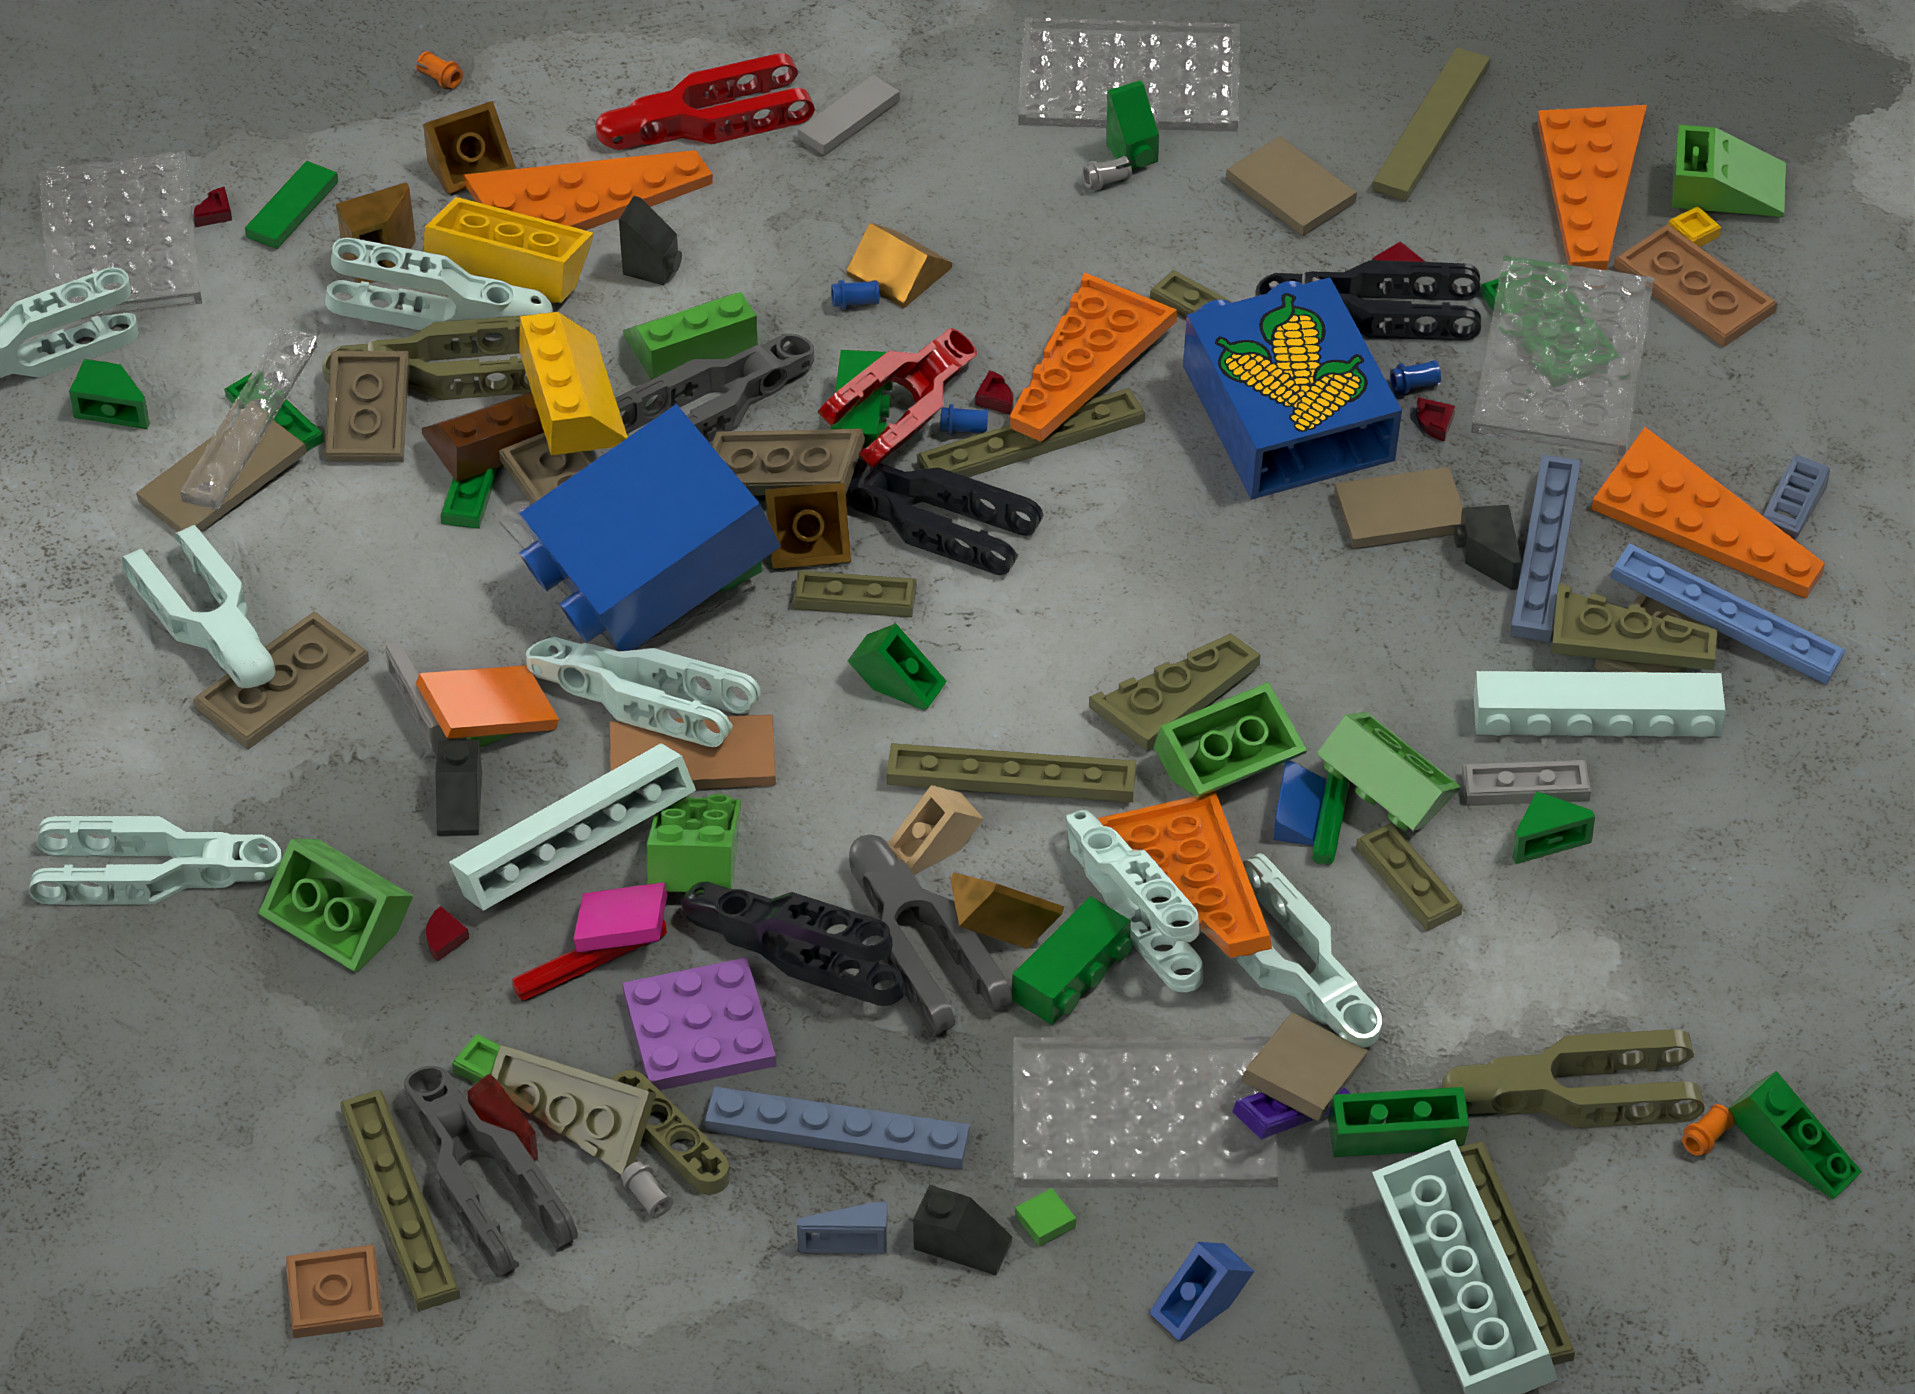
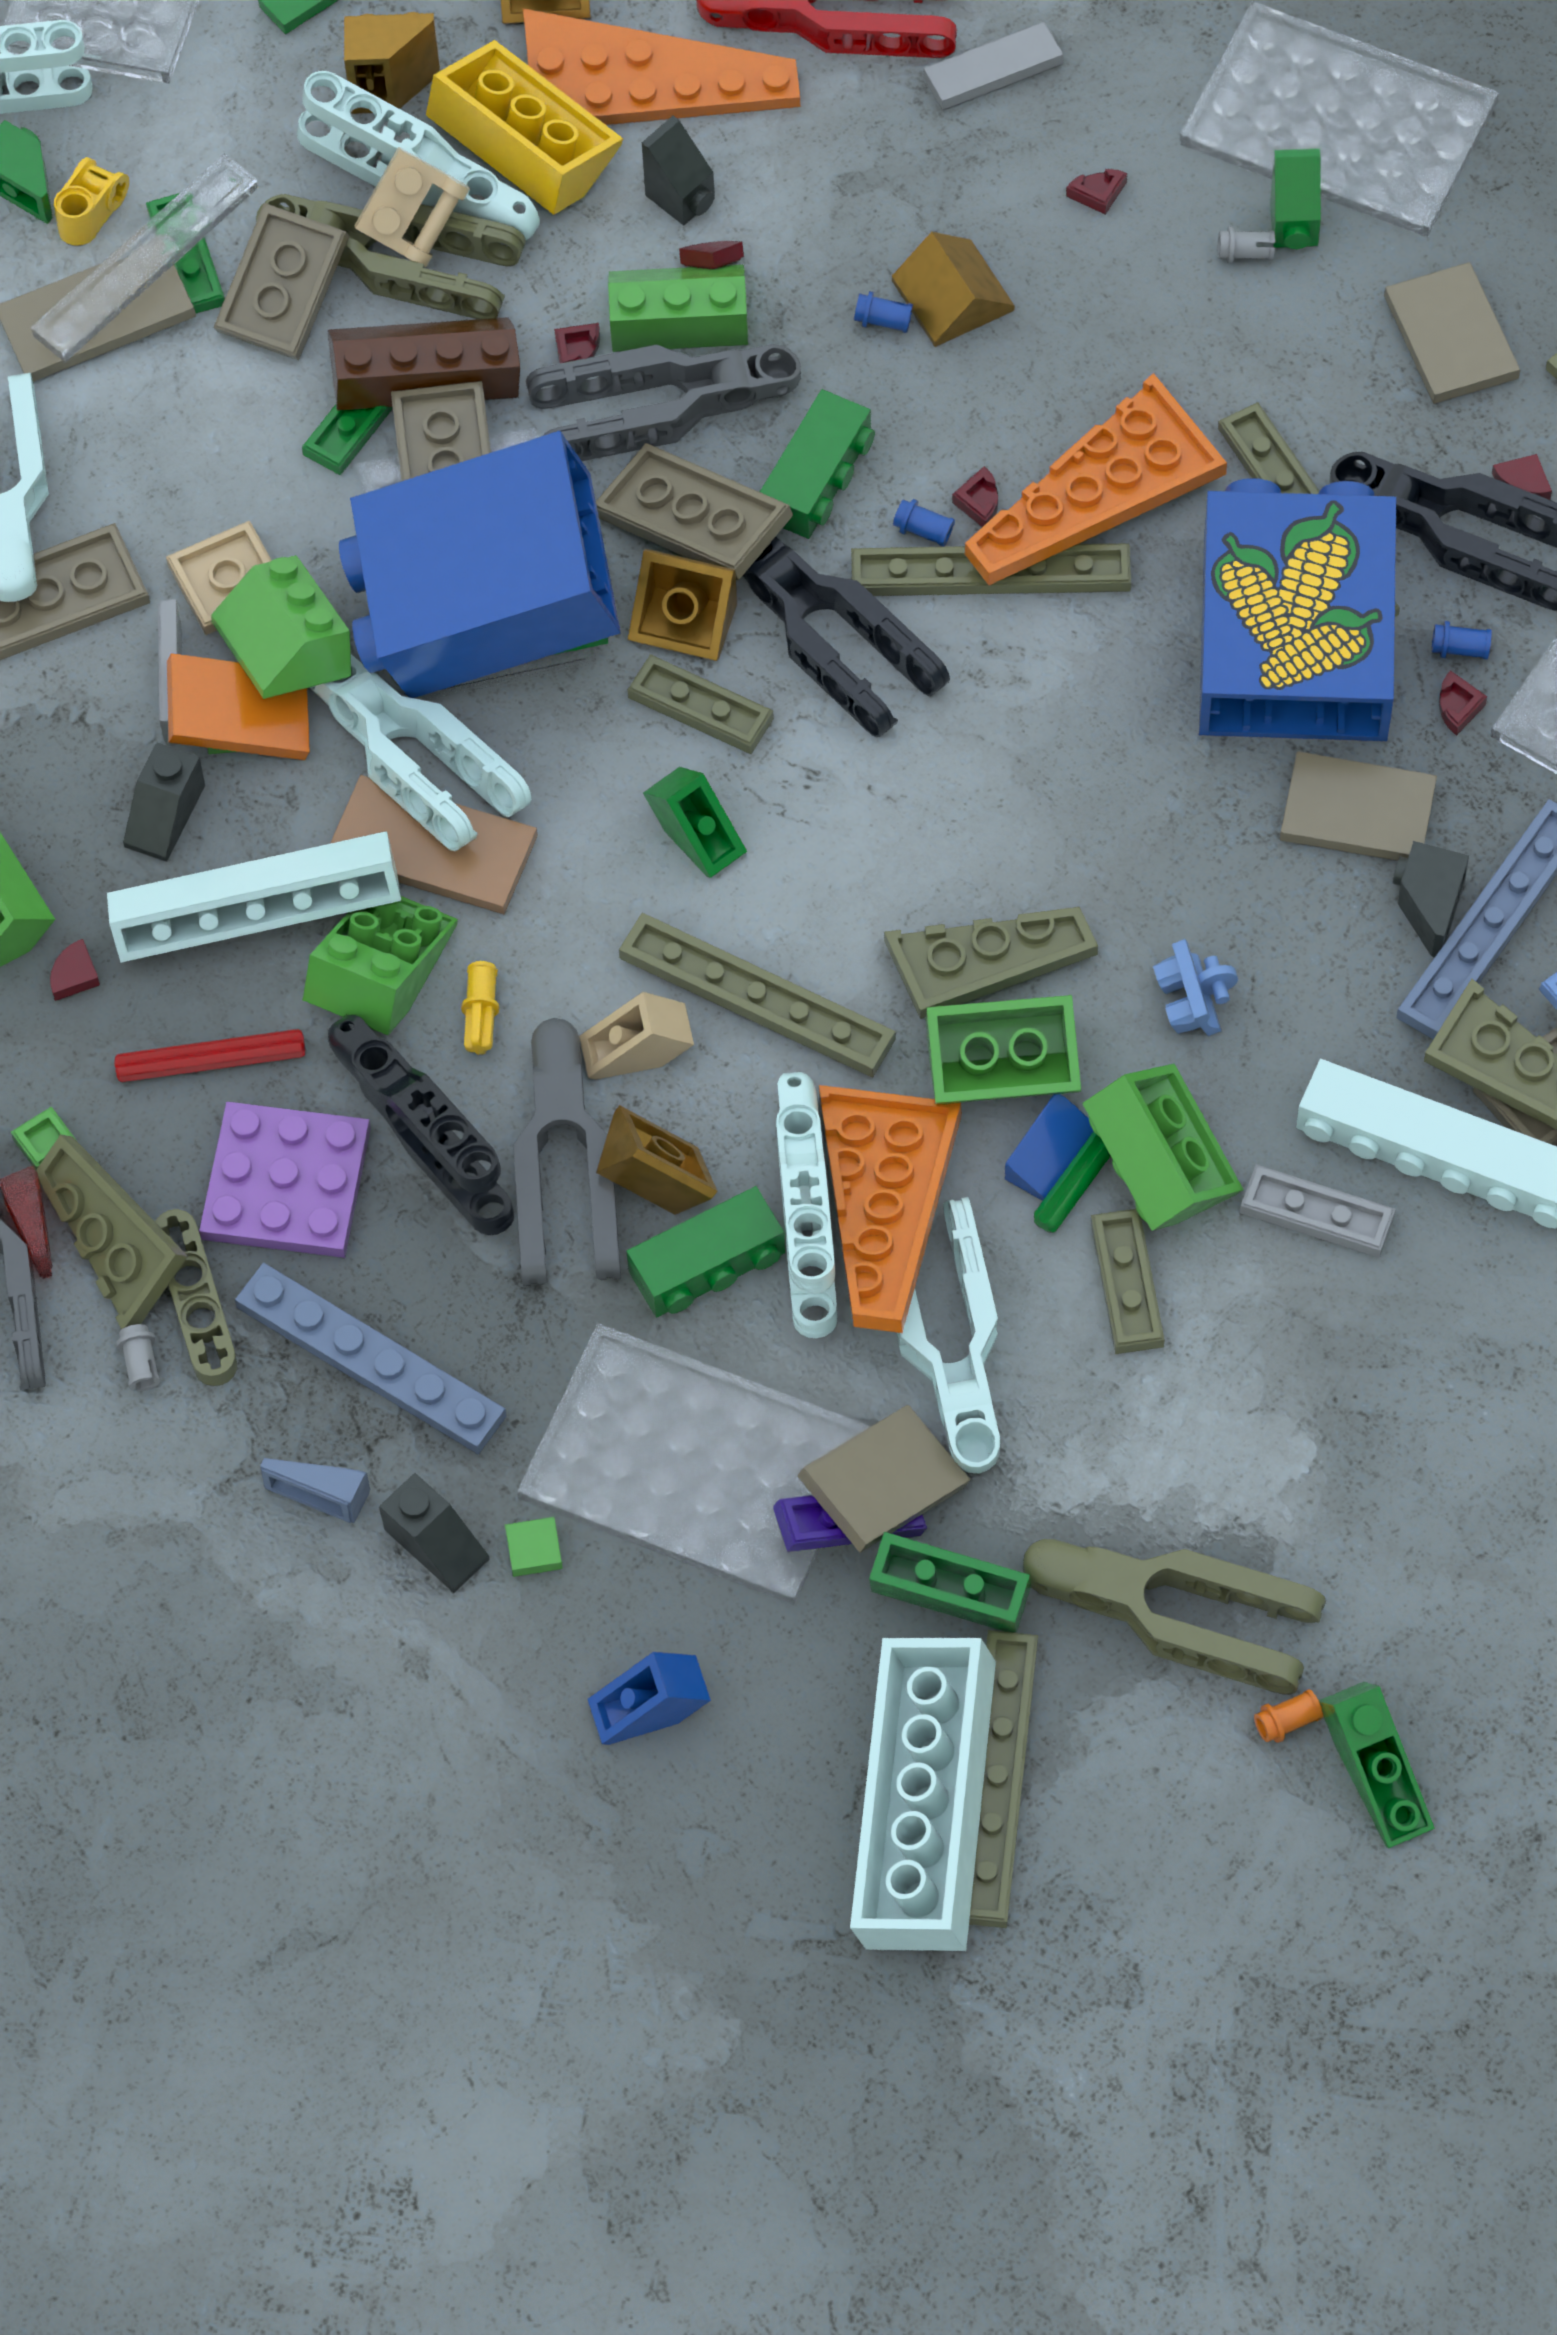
camera: 25 degrees right, 15 degrees up
(177, 401) = (88, 201): none -> yellow piece
(426, 622) = (214, 567): none -> tan tile
(441, 314) = (398, 200): none -> tan plate
(501, 631) = (283, 629): none -> bright green slope
(569, 384) = (492, 343): yellow slope -> none
(620, 917) = (256, 1024): dark pink tile -> none
(625, 380) = (577, 342): none -> dark red tile
(698, 294) = (711, 254): none -> dark red tile
(794, 850) = (480, 1007): none -> yellow axle
(920, 373) = (895, 451): red piece -> none
(973, 171) = (1097, 189): none -> dark red tile
(1354, 658) = (1186, 971): none -> medium blue hips
(1551, 827) = (1307, 1281): green slope -> none

